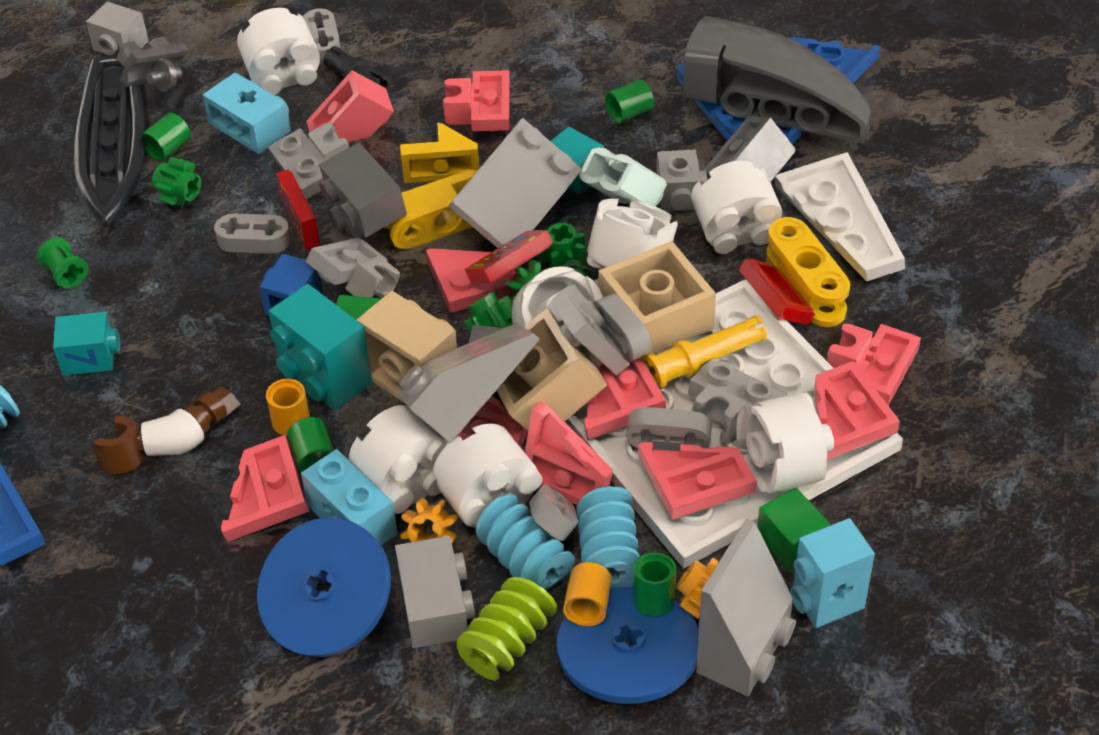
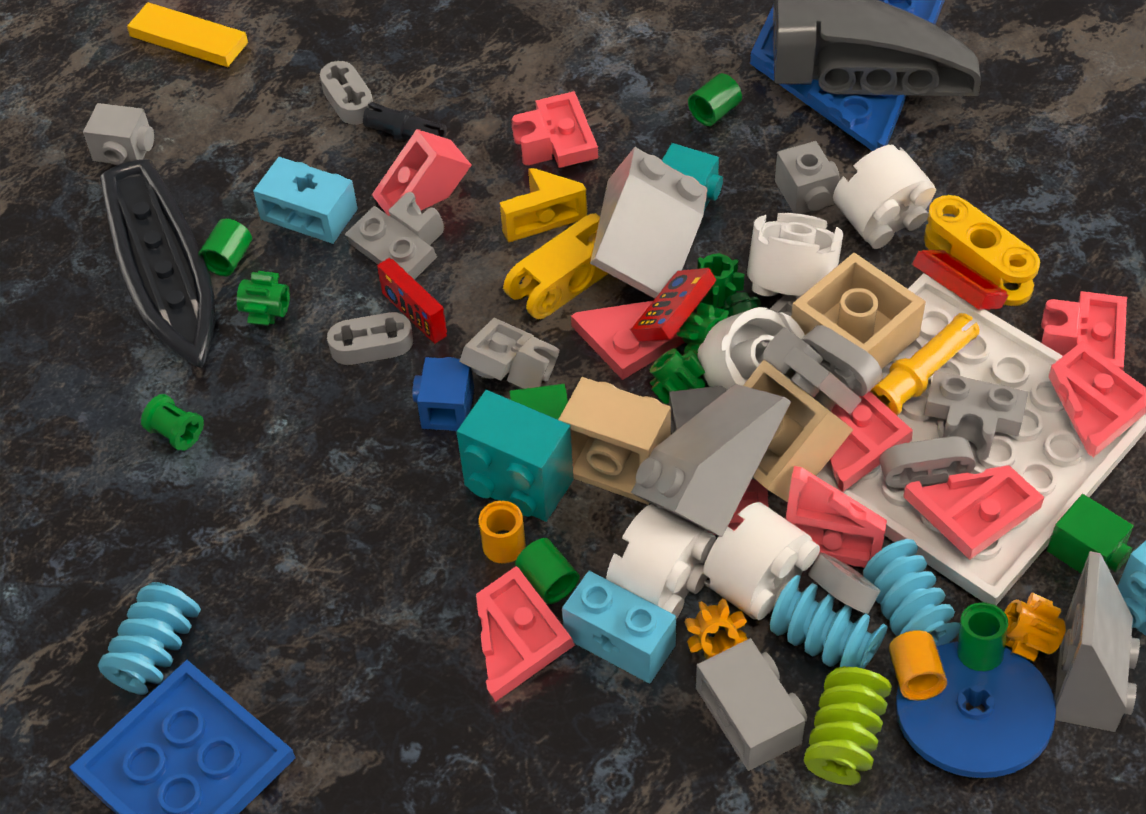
camera: 15 degrees left, 5 degrees up
(85, 343) = (242, 511): teal brick -> none
(155, 64) = (178, 165): flat silver hips -> none
(165, 435) = (377, 599): reddish brown piece -> none
(279, 50) = (316, 120): white brick -> none
(324, 621) = (659, 764): blue piece -> none
(360, 192) = (487, 269): dark grey brick -> none
(622, 178) = (754, 189): light aqua brick -> none
(758, 142) = (870, 123): panel -> none
(784, 442) = (1061, 448): white brick -> none
(843, 211) = (986, 174): white wing -> none

